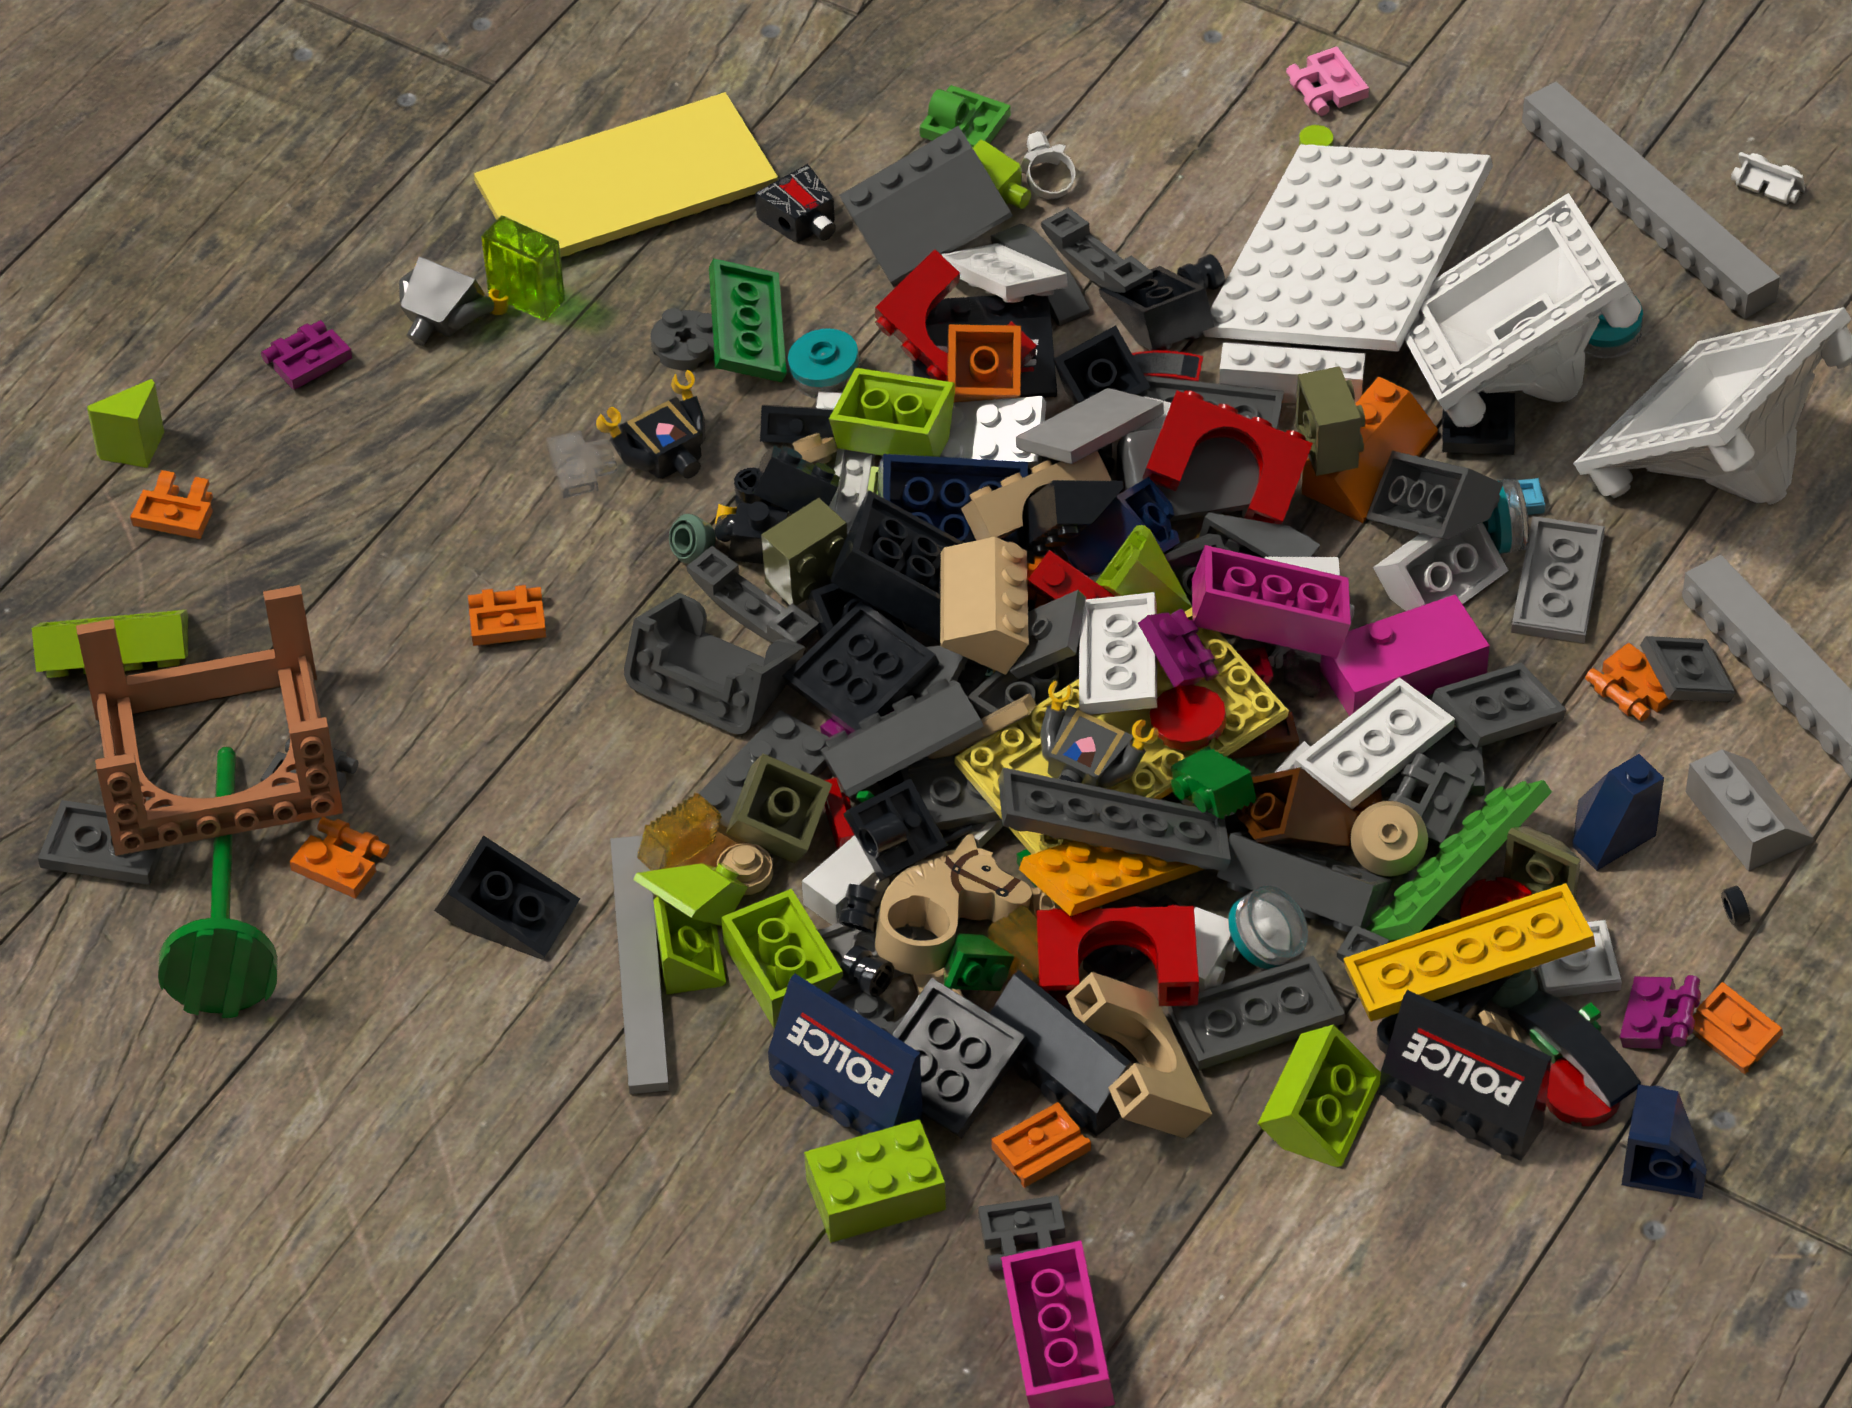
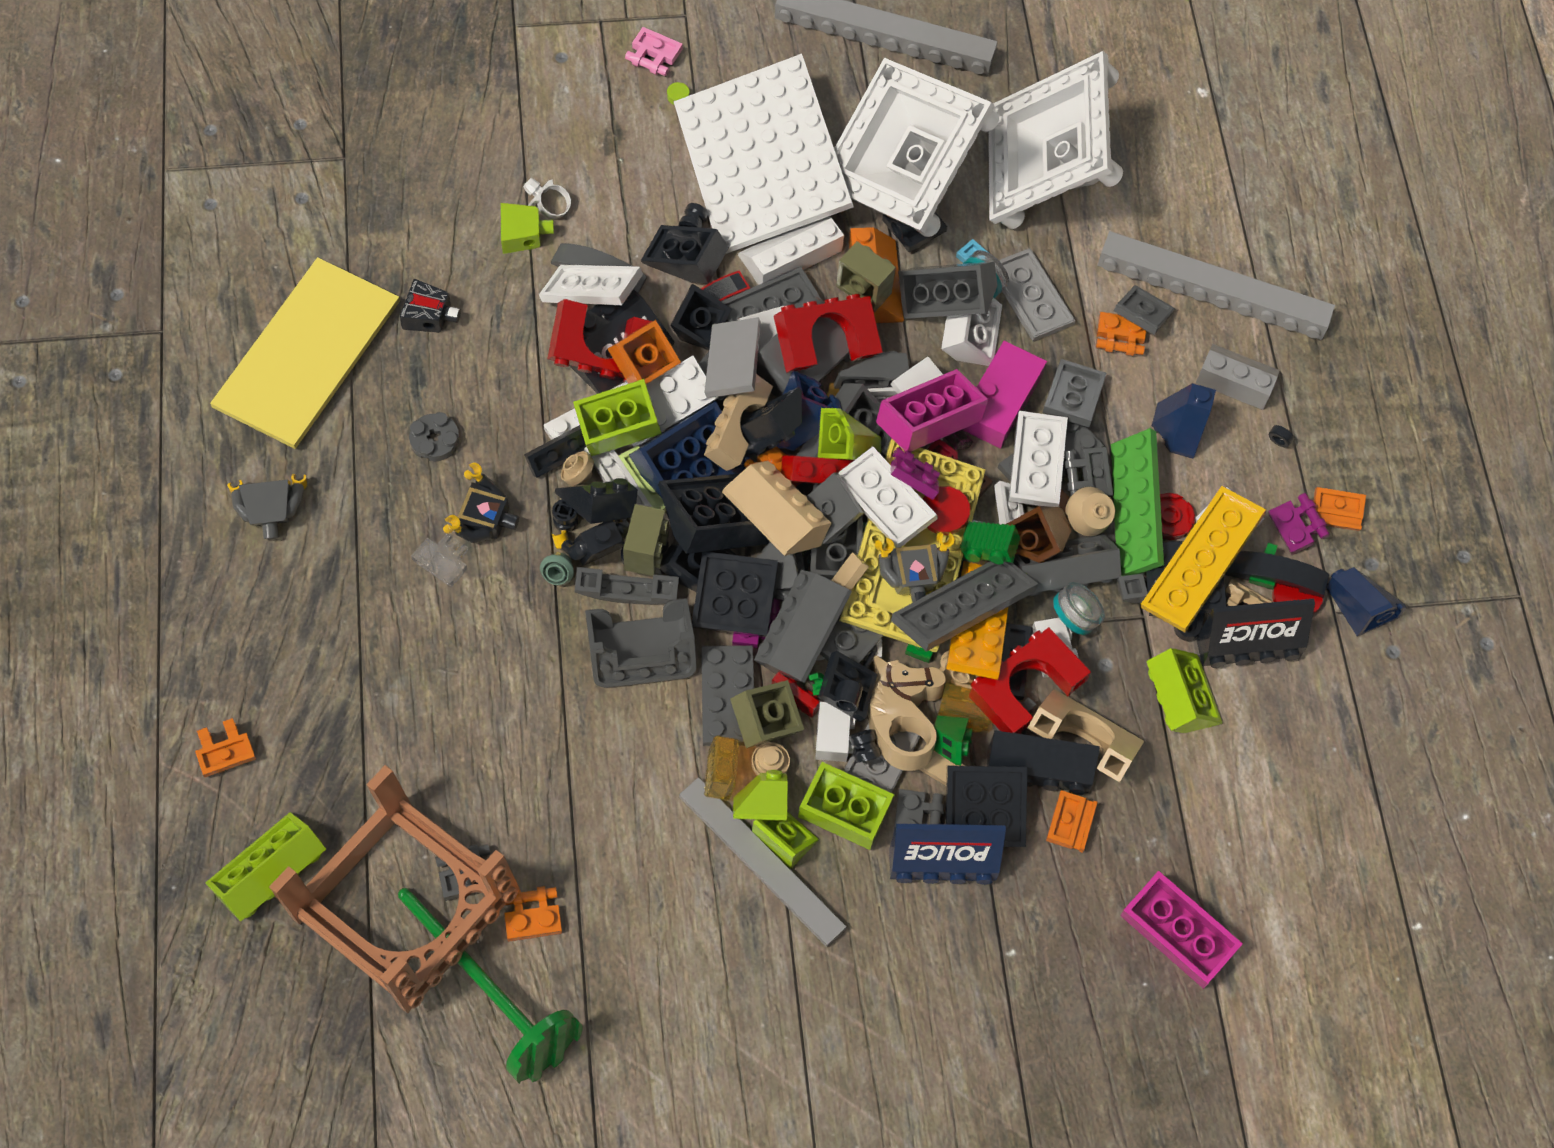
camera: 45 degrees left, 15 degrees up
(83, 845) = (374, 1013): dark grey plate -> none
(127, 425) = (149, 715): lime slope -> none
(307, 354) = (218, 593): magenta plate -> none
(506, 615) = (495, 693): orange plate -> none
(506, 901) = (657, 876): black slope -> none
(524, 267) = (306, 452): clear neon green brick -> none
(747, 320) = (464, 403): green plate -> none
(823, 361) = (532, 403): teal piece -> none
(869, 972) = (900, 782): black wheel -> none
(875, 1180) = (1010, 907): lime brick -> none
(925, 204) = (508, 267): dark grey slope -> none
(973, 113) = (473, 194): bright green plate -> none
(1020, 1223) = (1102, 876): dark grey plate -> none
(1090, 256) = (623, 242): dark grey slope -> none
(1257, 1012) = (1111, 660): dark grey plate -> none
(1540, 861) = (1182, 475): olive slope -> none

